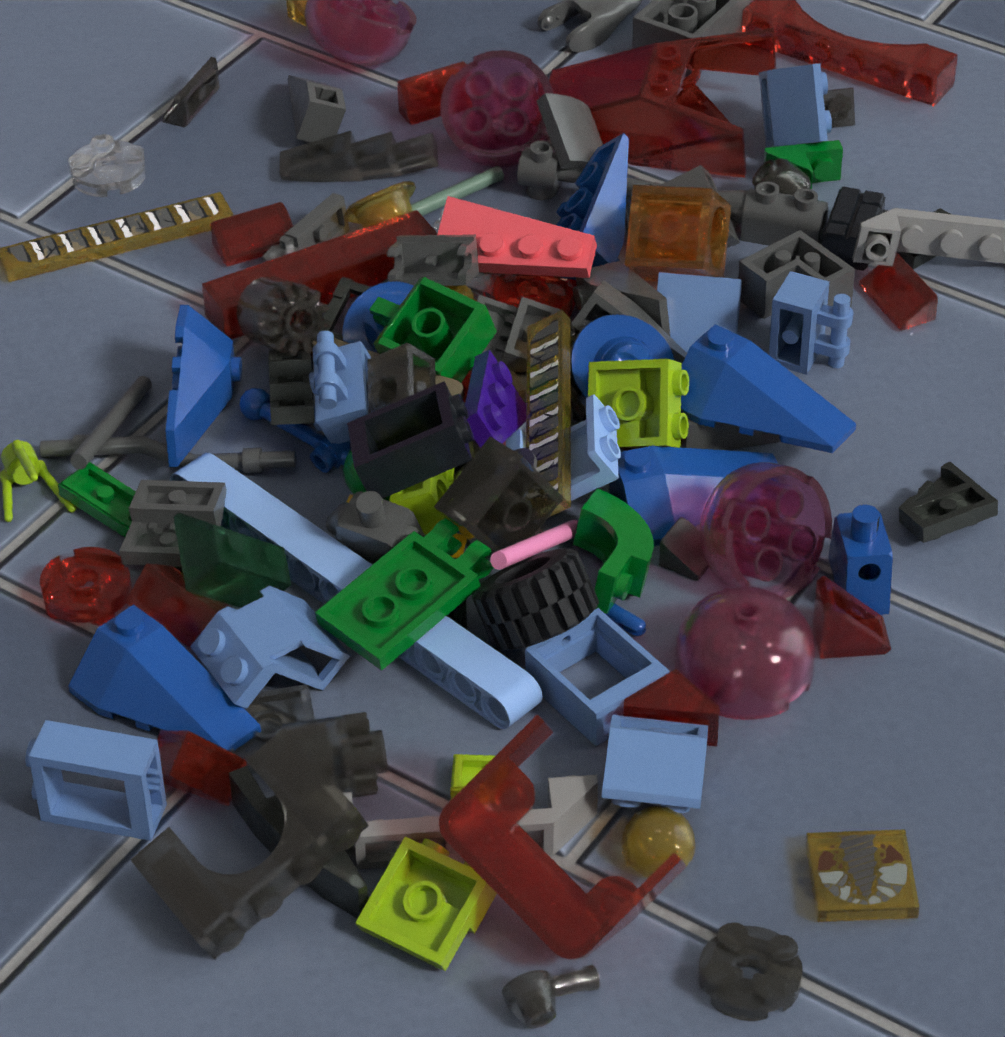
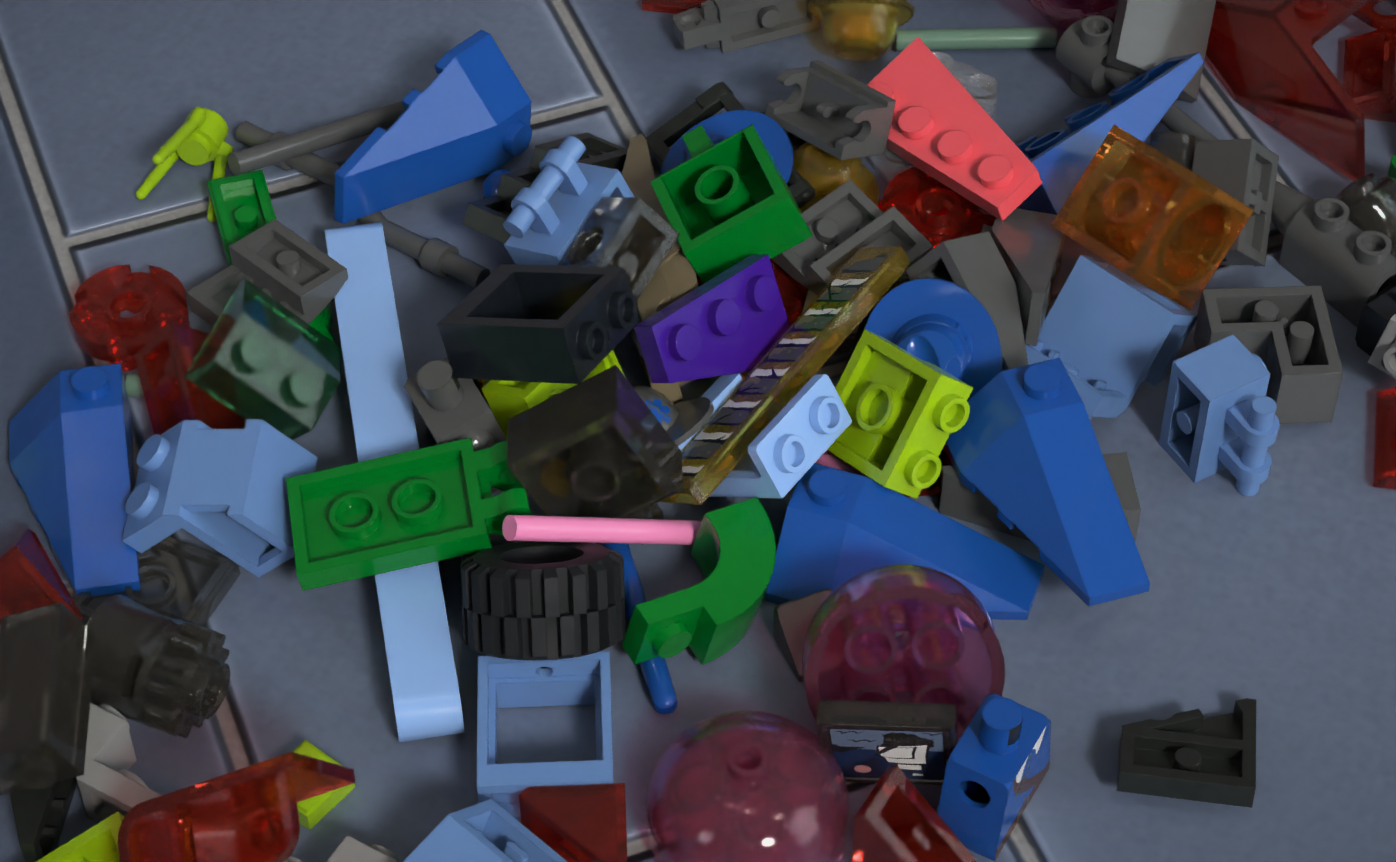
camera: 35 degrees right, 5 degrees up
(281, 314) = (611, 71): clear smoke gear -> none
(320, 267) = (678, 62): clear red brick -> none
(797, 567) = (884, 734): none -> tile

